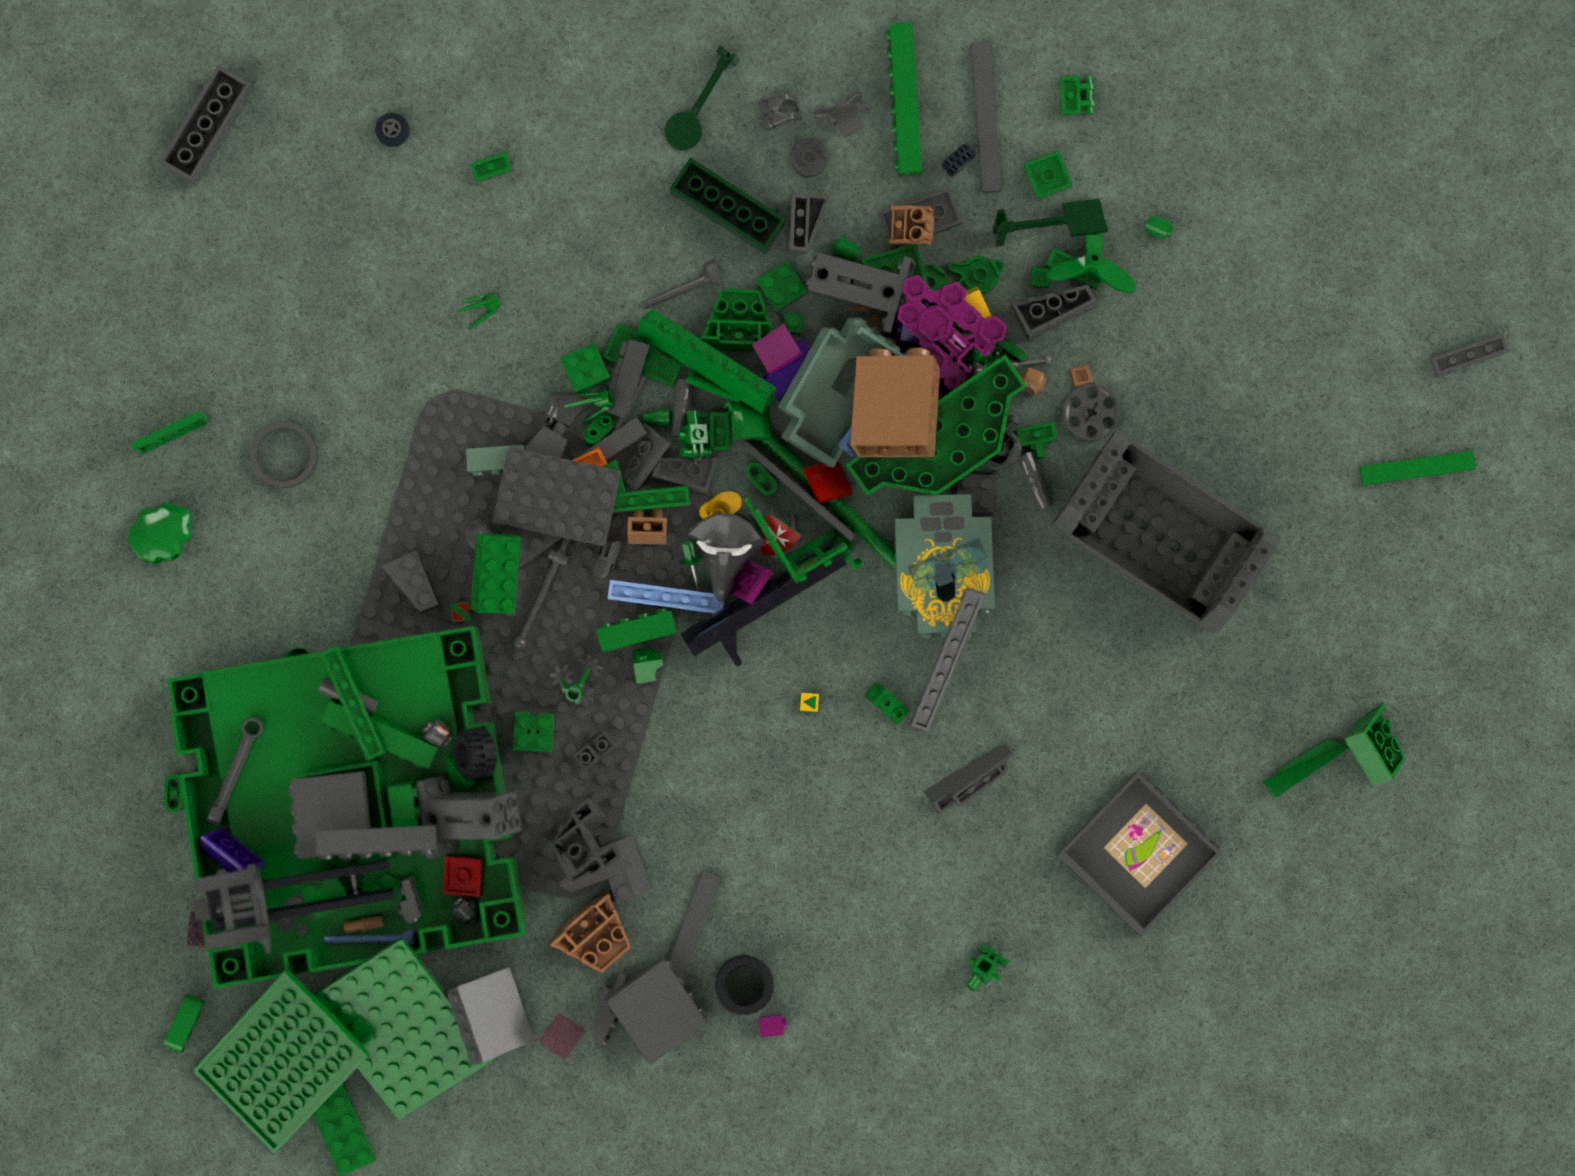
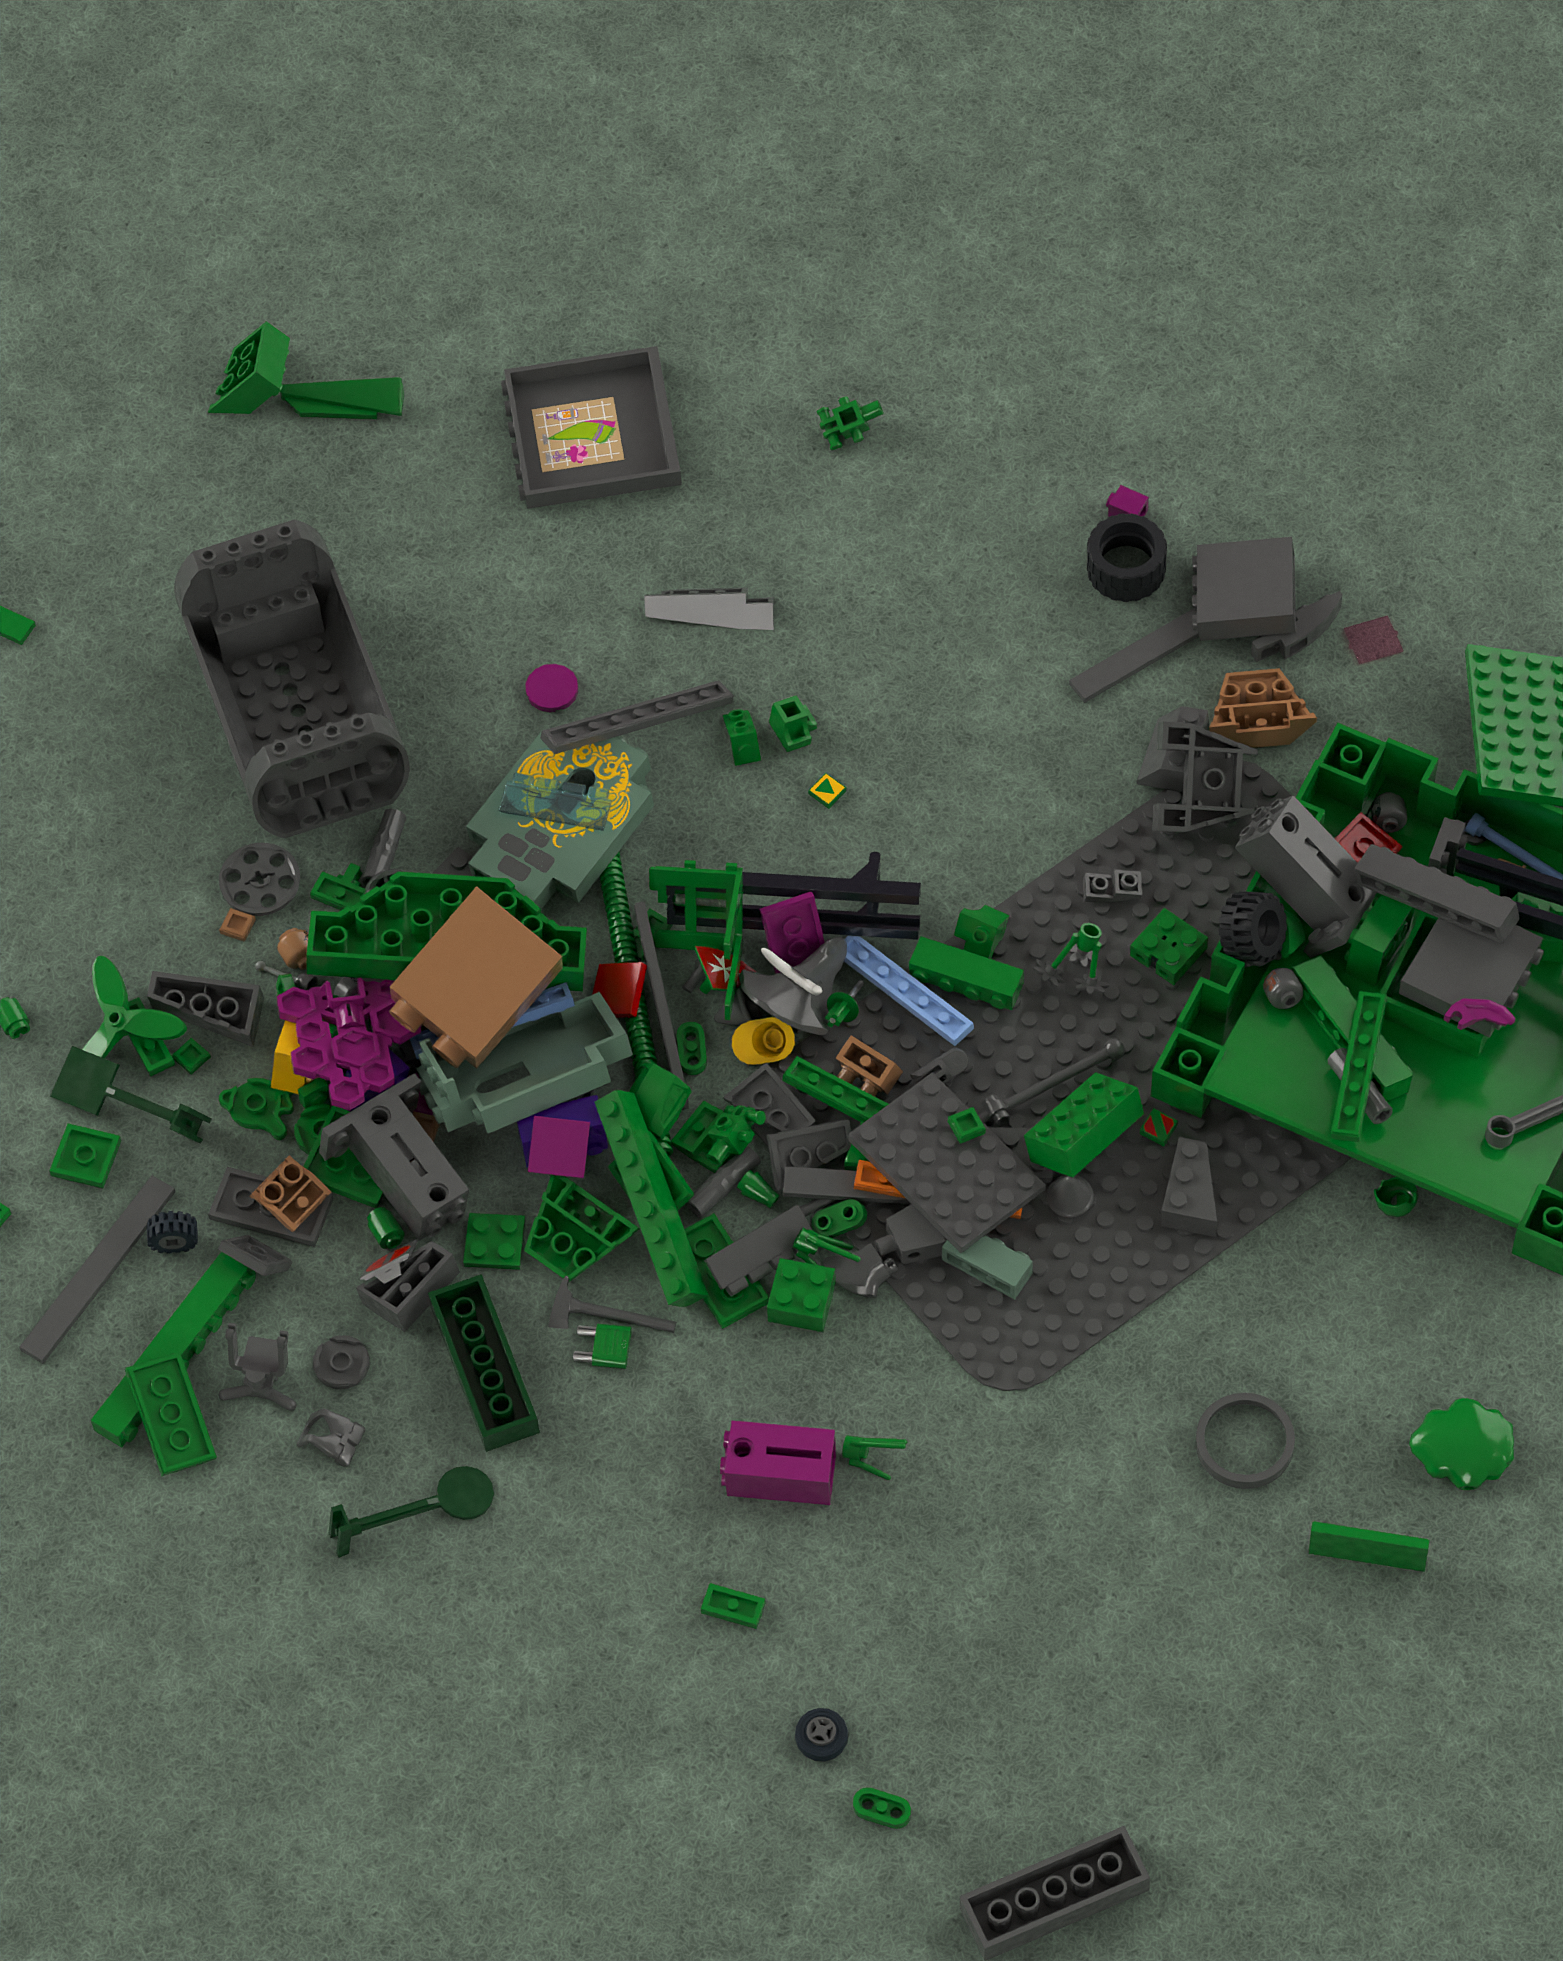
camera: 135 degrees left, 25 degrees down
(303, 781) = (1478, 1010): none -> magenta piece
(331, 110) = (883, 1806): none -> green plate
(490, 1016) = (1438, 685): brick -> none
(521, 258) = (779, 1462): none -> magenta brick
(558, 522) = (966, 1125): none -> green tile
(670, 269) = (609, 1347): none -> green piece
(794, 322) = (515, 1192): green plate -> none
(824, 224) = (388, 1266): none -> dark grey piece
(860, 730) = (792, 723): none -> green brick
(873, 57) = (170, 1413): none -> green tile
(902, 178) = (255, 1255): none -> dark grey tile
(1023, 657) = (551, 688): none -> magenta tile

